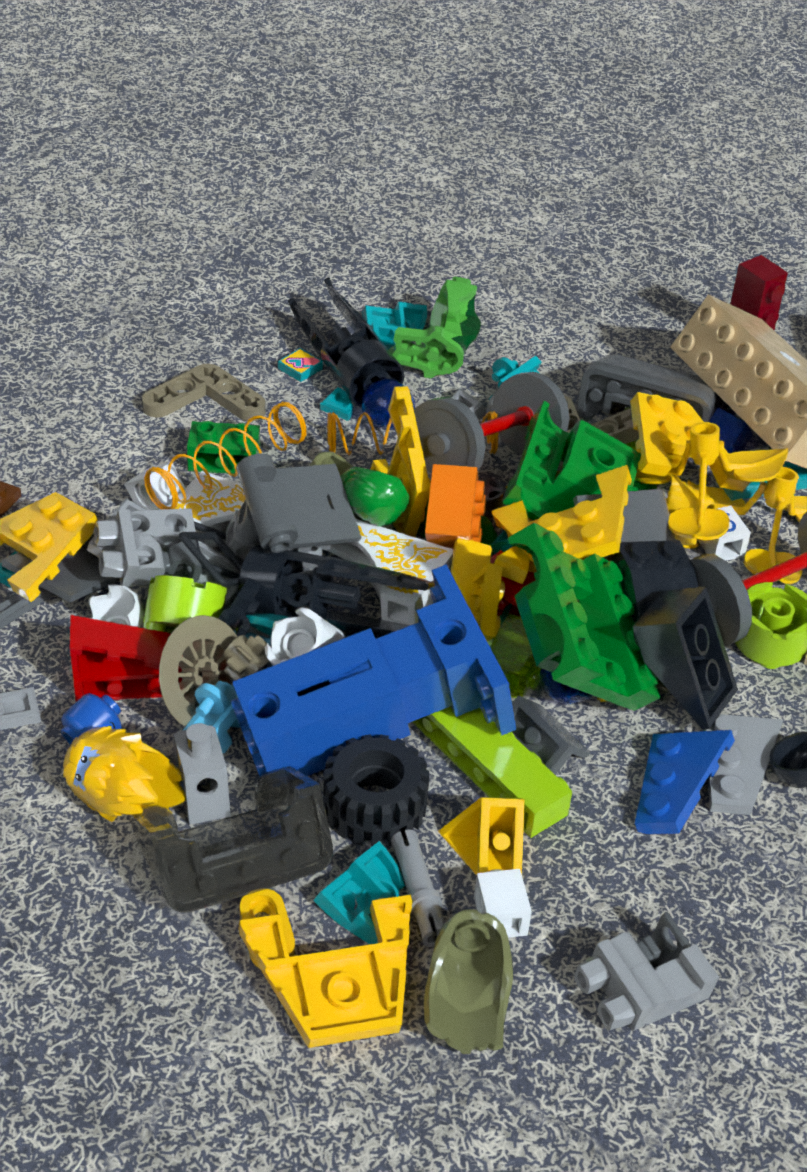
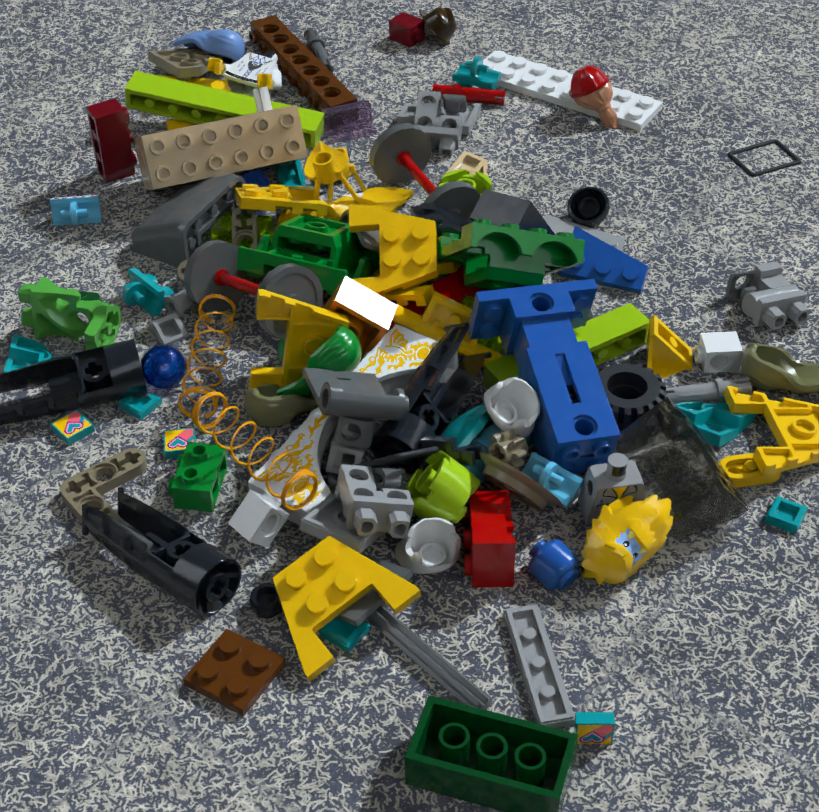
camera: 80 degrees left, 0 degrees up
(102, 434) = (167, 555): none -> black piece
(189, 970) = (786, 514): none -> teal tile
(291, 429) = (176, 441): none -> tile
(650, 318) = (76, 210): none -> medium azure hips

